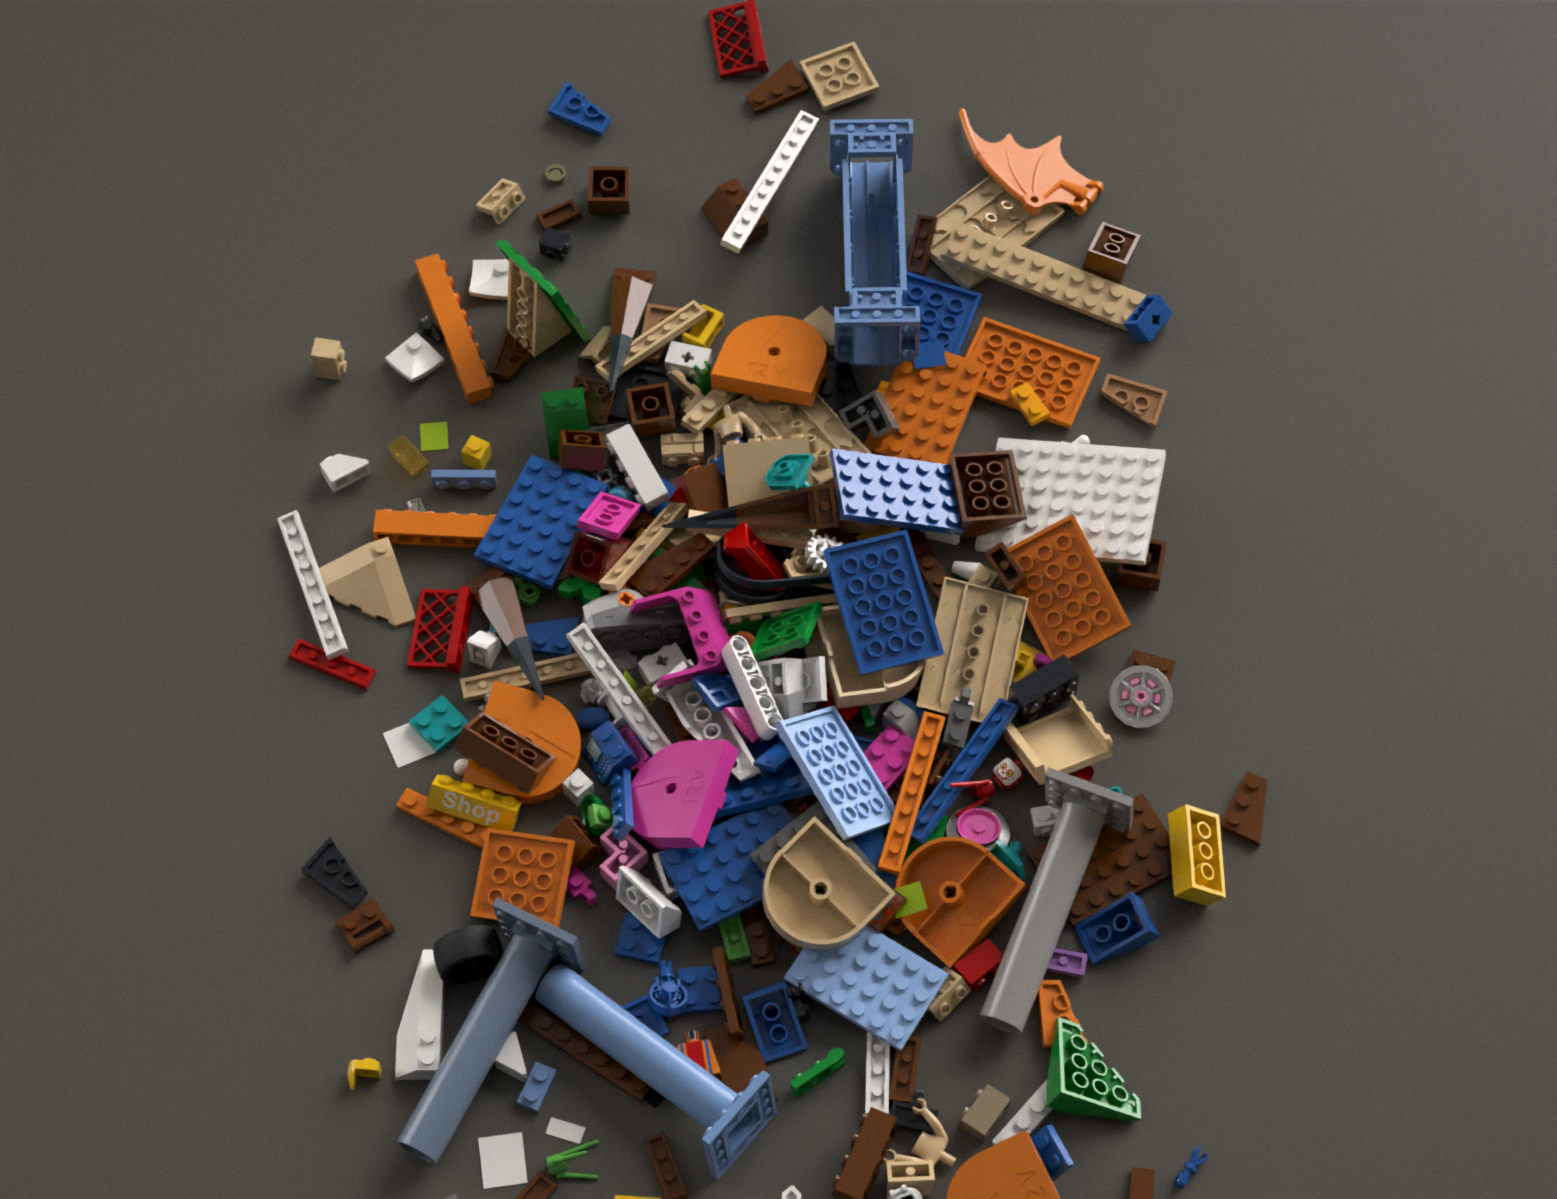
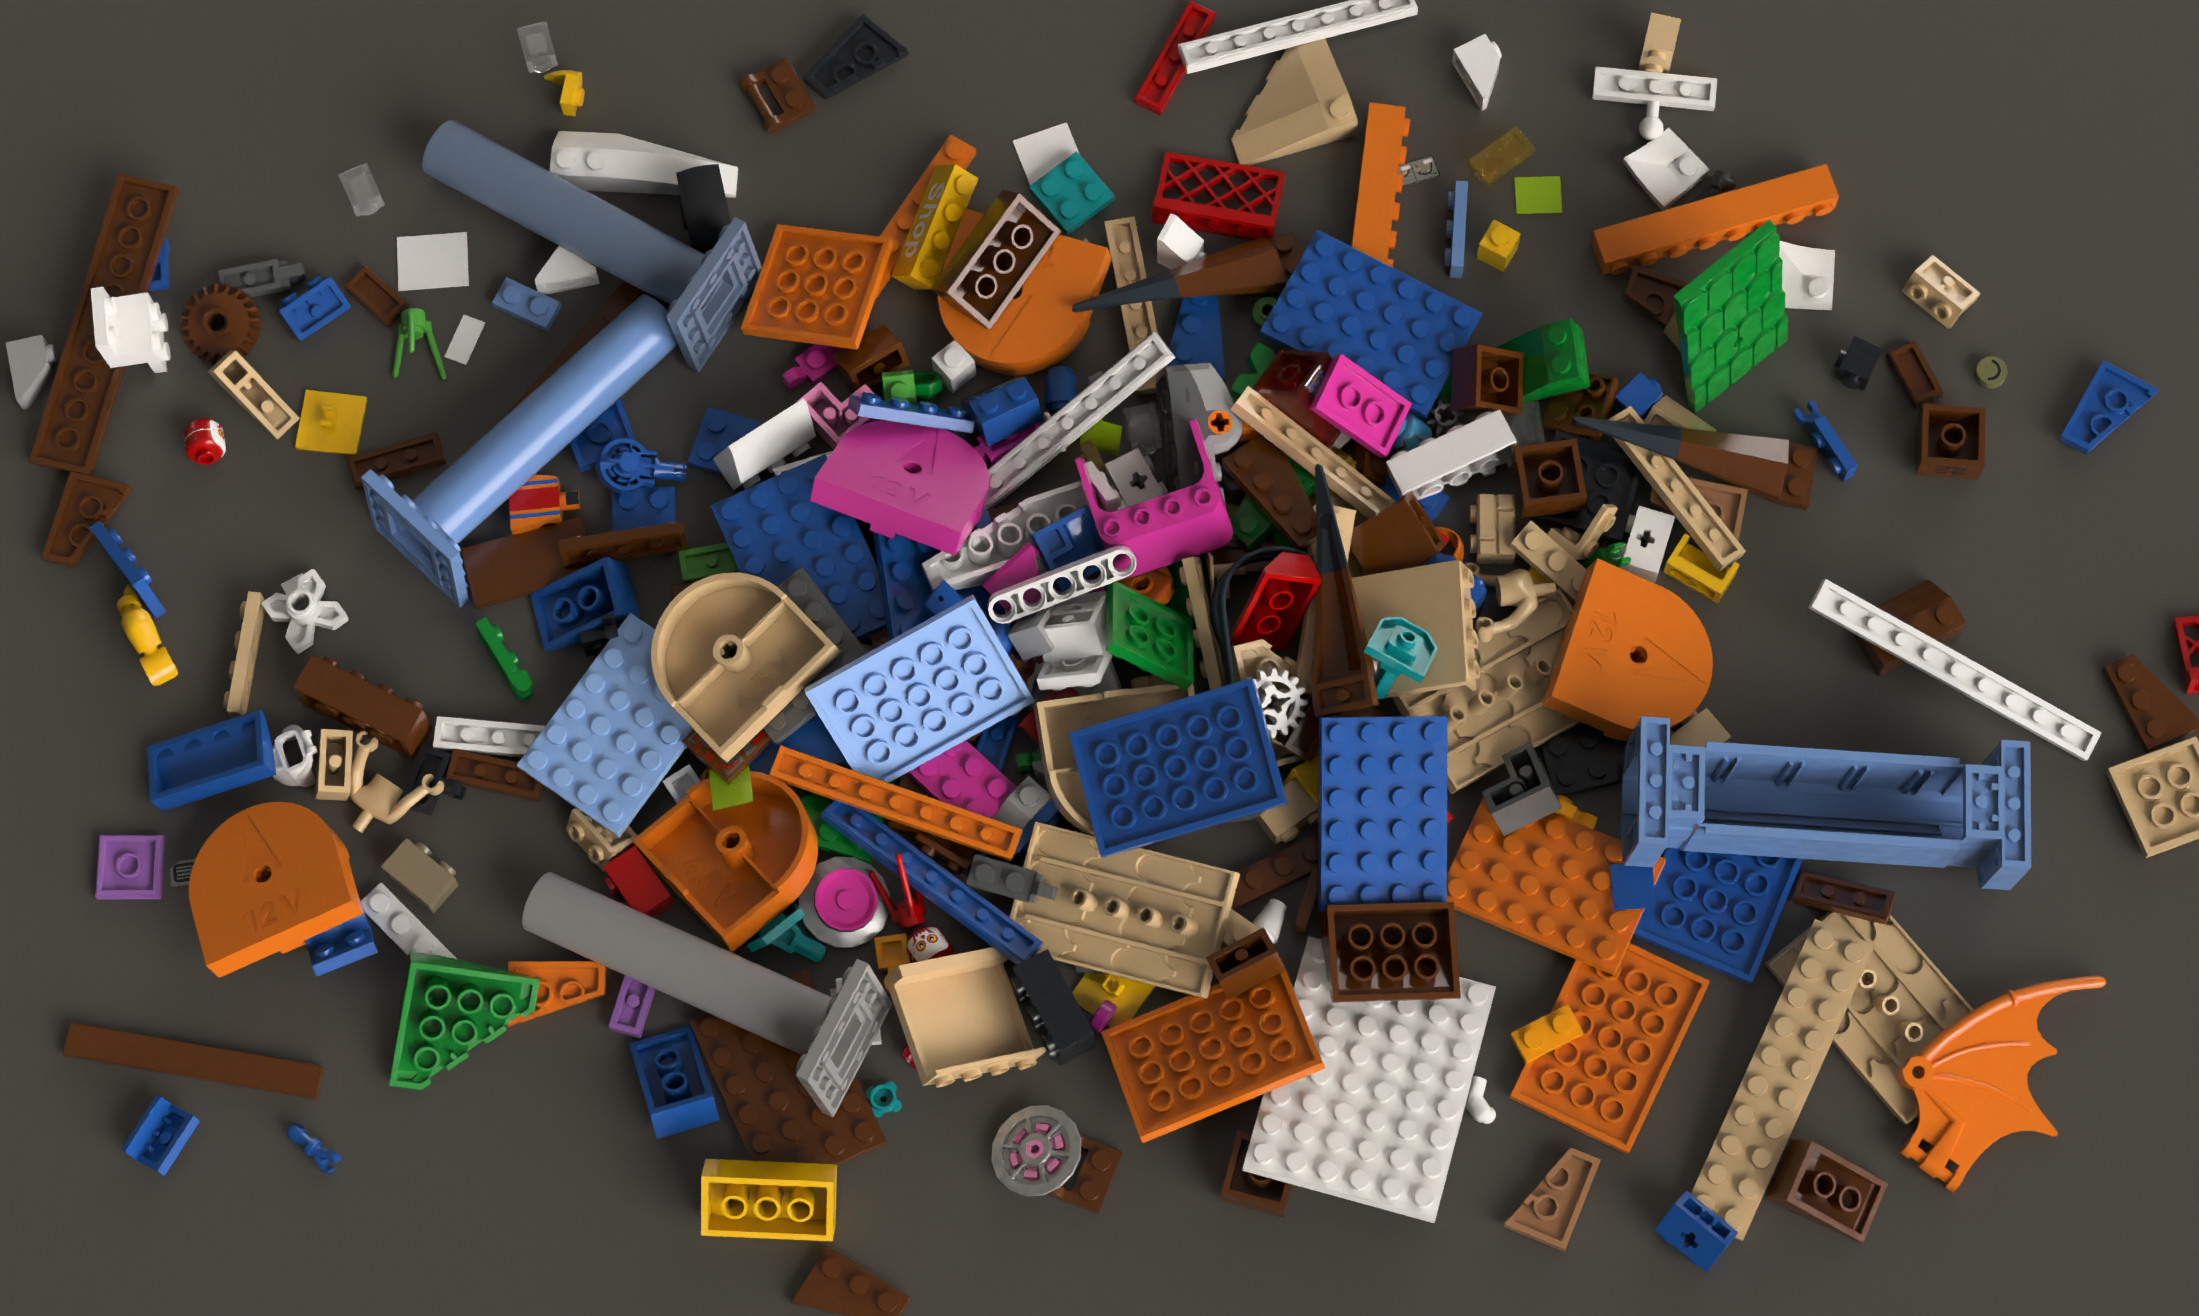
camera: 95 degrees right, 10 degrees up
(329, 1096) = (537, 47): none -> clear brick
(358, 365) = (1654, 91): none -> white plate
(584, 366) = (1640, 394): none -> blue brick
(611, 259) = (1826, 439): none -> blue plate
(905, 939) = (681, 782): none -> white plate
(951, 546) = (1307, 904): none -> reddish brown tile
(1014, 798) = (891, 953): none -> light orange plate

